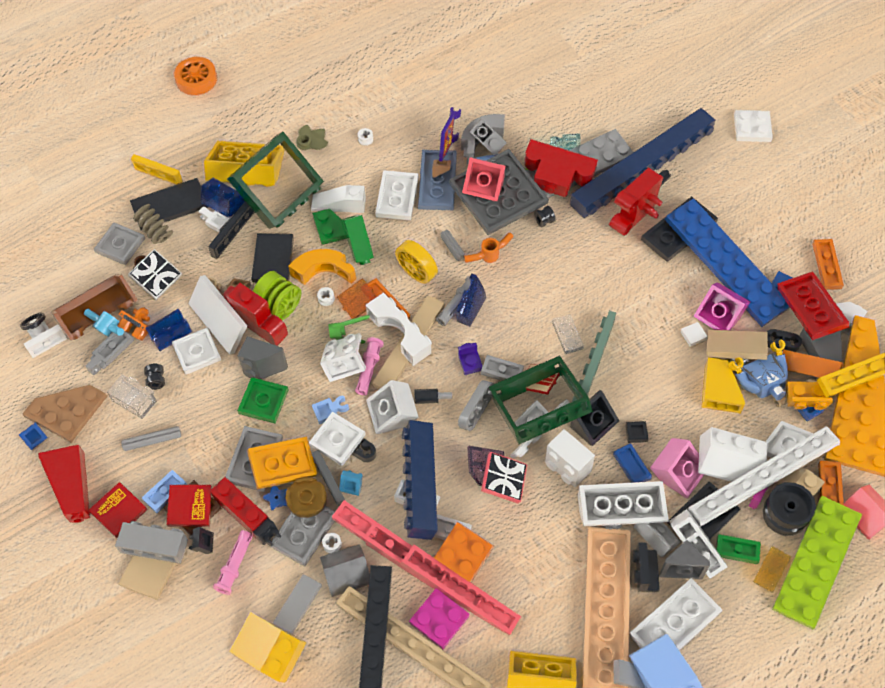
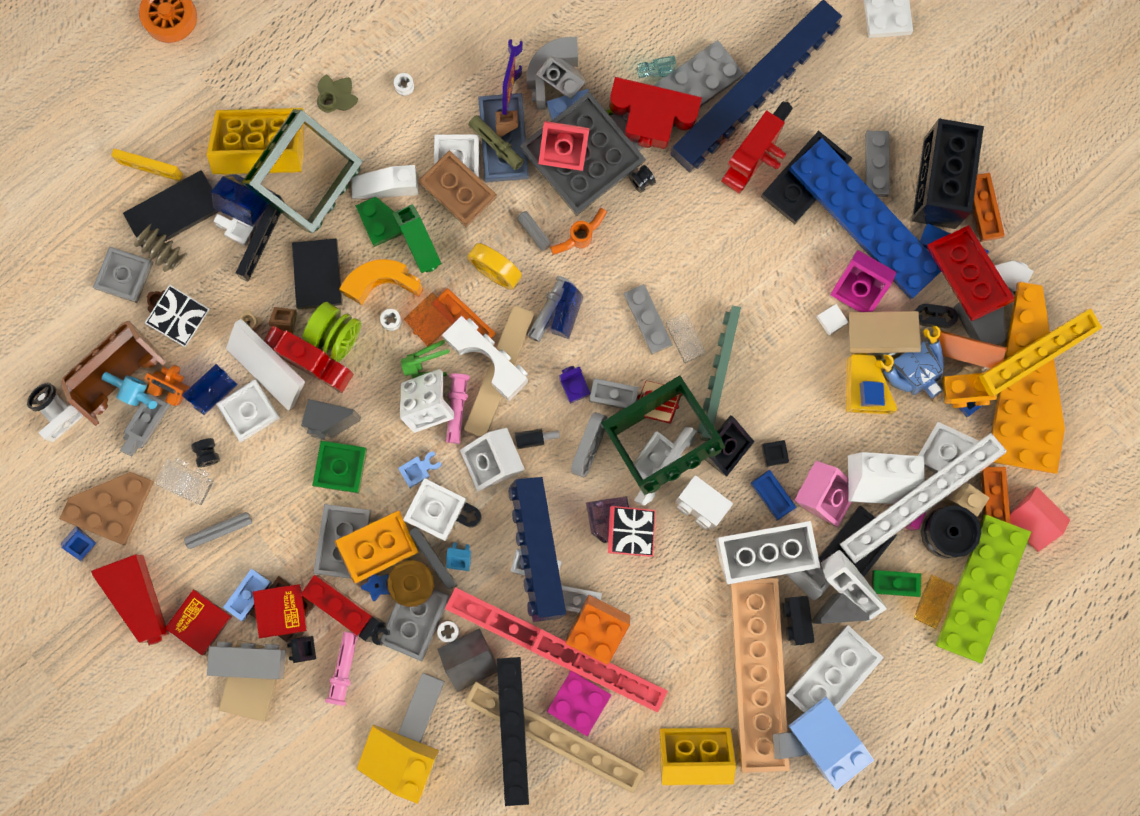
camera: 10 degrees left, 20 degrees up
(395, 207) = (457, 189): none -> medium nougat tile
(435, 183) = (502, 148): none -> olive pin
(538, 318) = (648, 319): none -> light grey plate
(723, 387) = (872, 393): none -> blue slope
(739, 224) = (877, 162): none -> light grey plate
(796, 231) = (948, 173): none -> black brick

